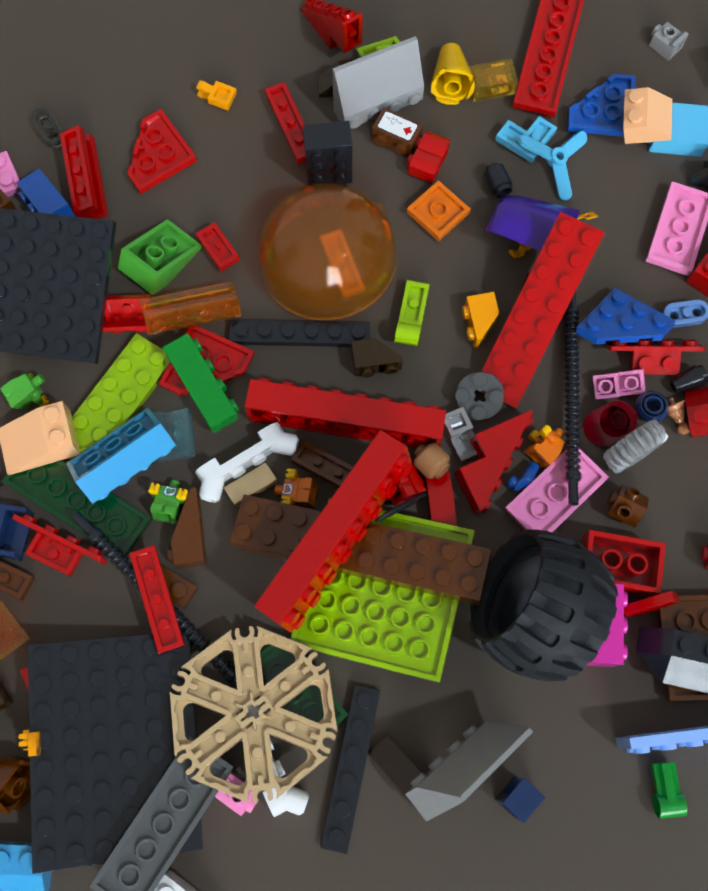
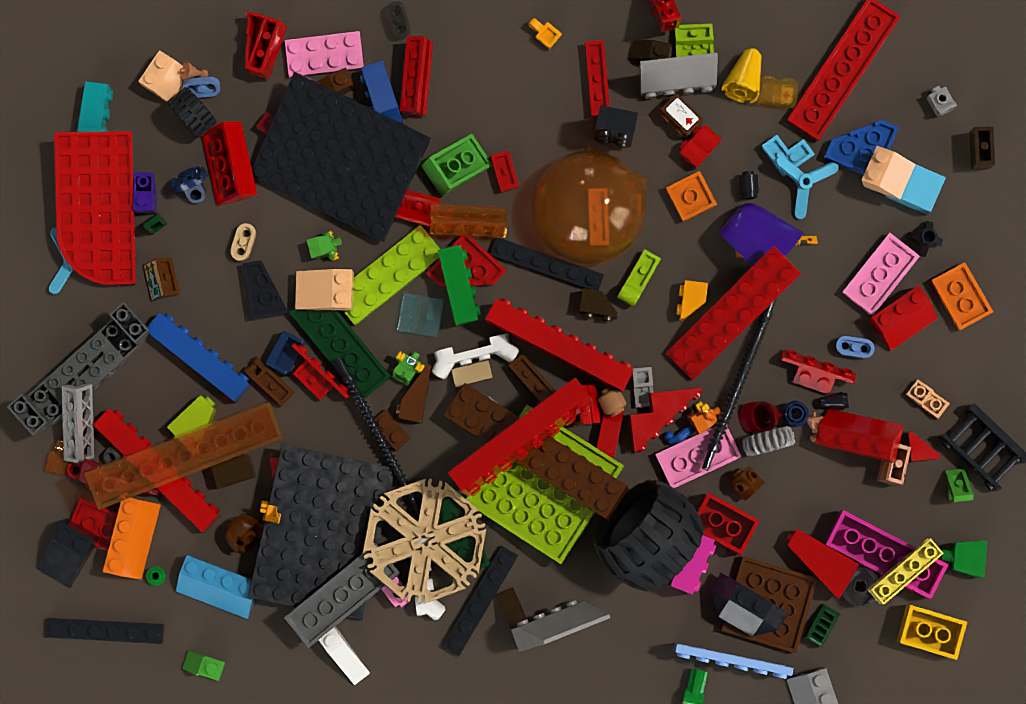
camera: 25 degrees right, 10 degrees up
(120, 455) = (382, 322): dark azure slope -> none
(157, 599) = (380, 439): red plate -> none
(158, 152) = (481, 71): red plate -> none
(297, 490) = (505, 391): orange piece -> none
(401, 507) = (577, 430): black piece -> none
(480, 381) = (662, 371): dark grey plate -> none
(520, 798) = (589, 659): dark blue panel -> none
(619, 384) = (779, 387): bright pink slope -> none
(624, 320) = (801, 338): blue plate -> none
(651, 604) = (733, 559): red tile -> none

